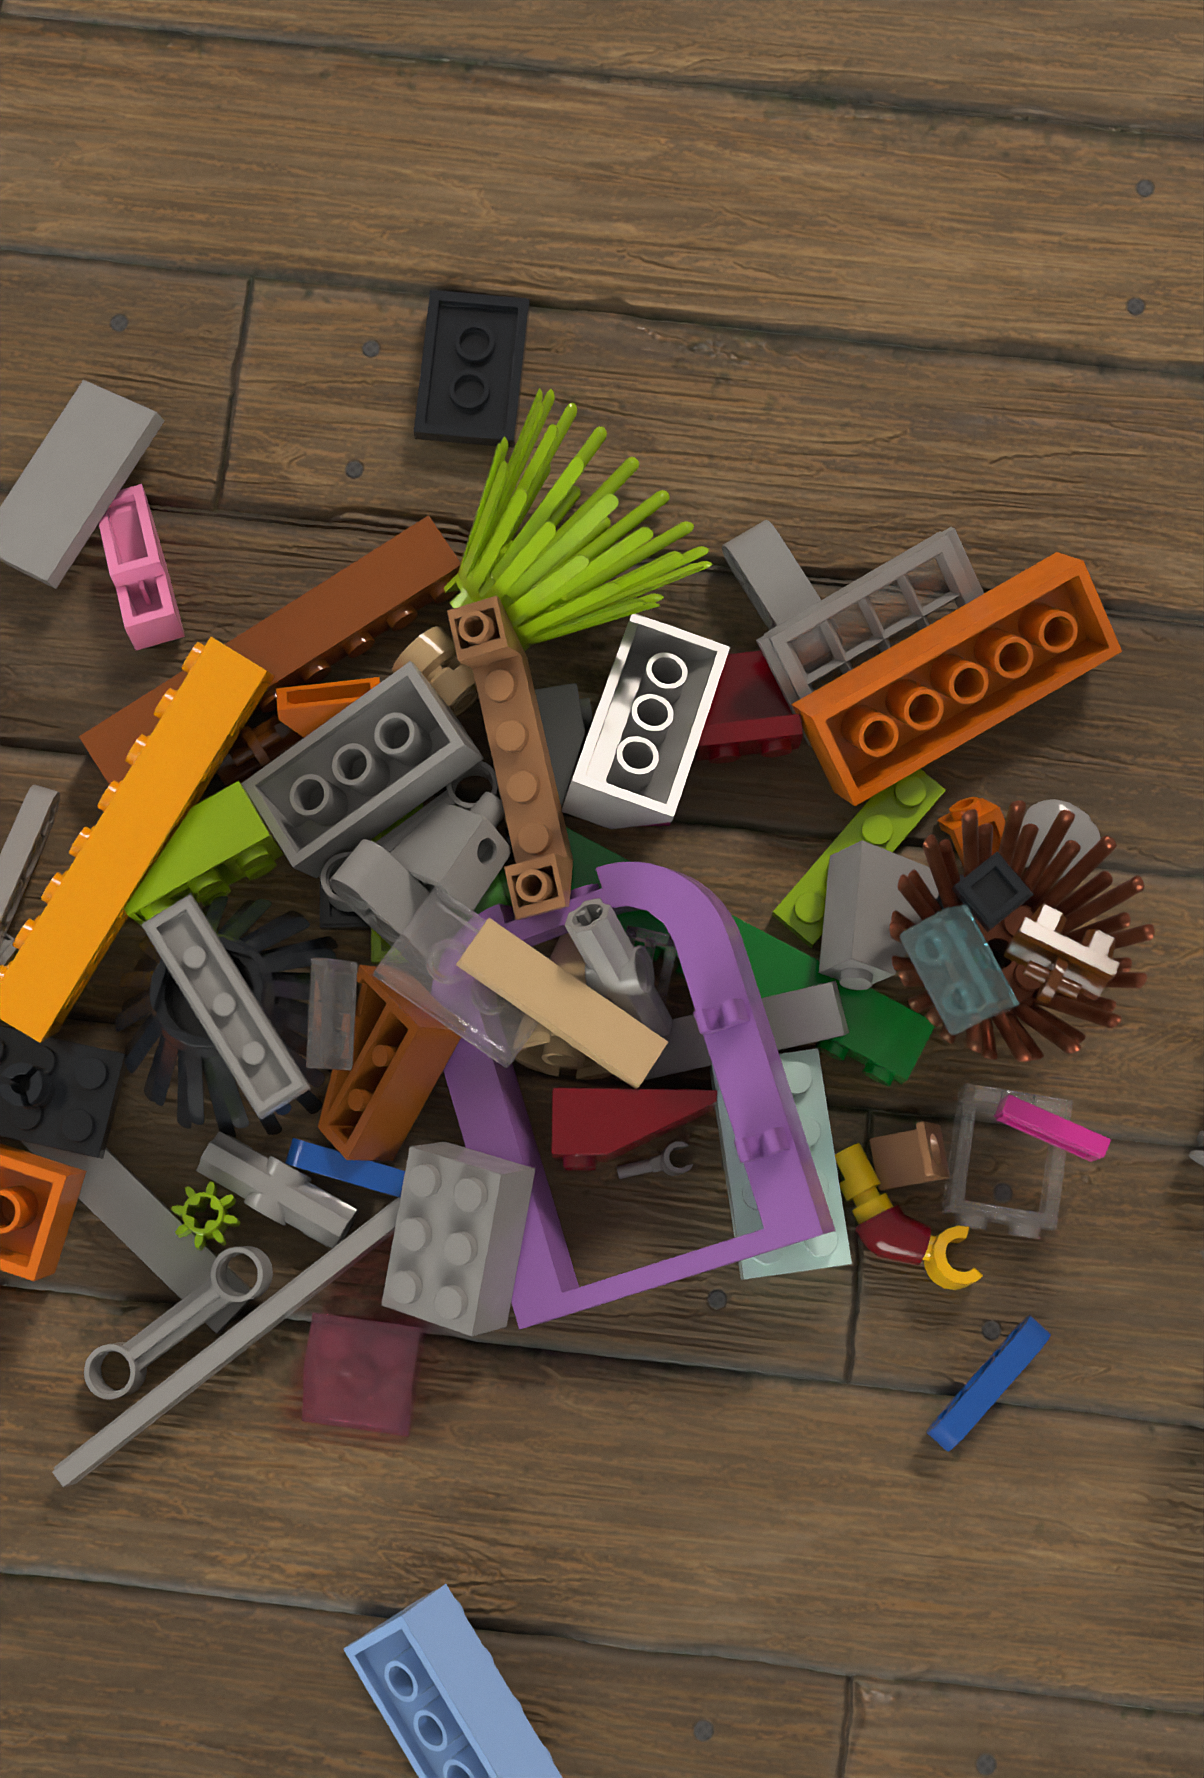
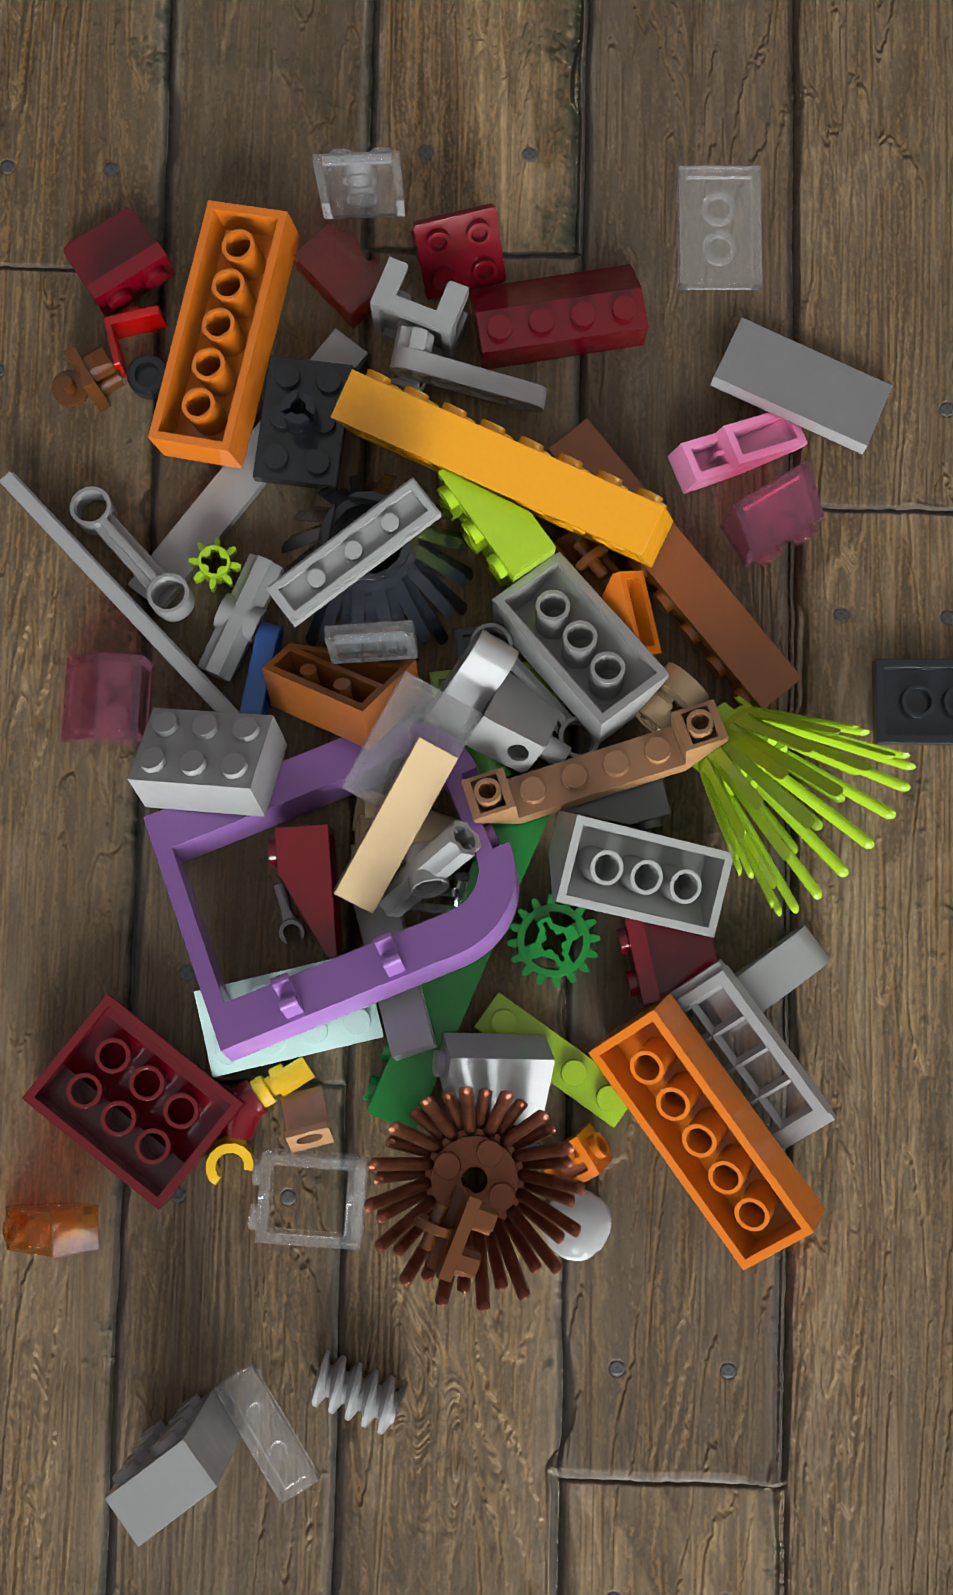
camera: 80 degrees right, 5 degrees up
(230, 529) = (774, 517): none -> clear pink slope
(708, 816) = (535, 949): none -> green gear
(873, 1366) = (133, 1101): none -> dark red slope
(958, 969) = (436, 1147): clear light blue bracket -> none
(988, 1383) = (165, 1222): blue beam -> none
(992, 891) = (508, 1171): black tile -> none
(1024, 1489) = (51, 1228): none -> clear orange slope
(1051, 1128) = (330, 1234): dark pink tile -> none

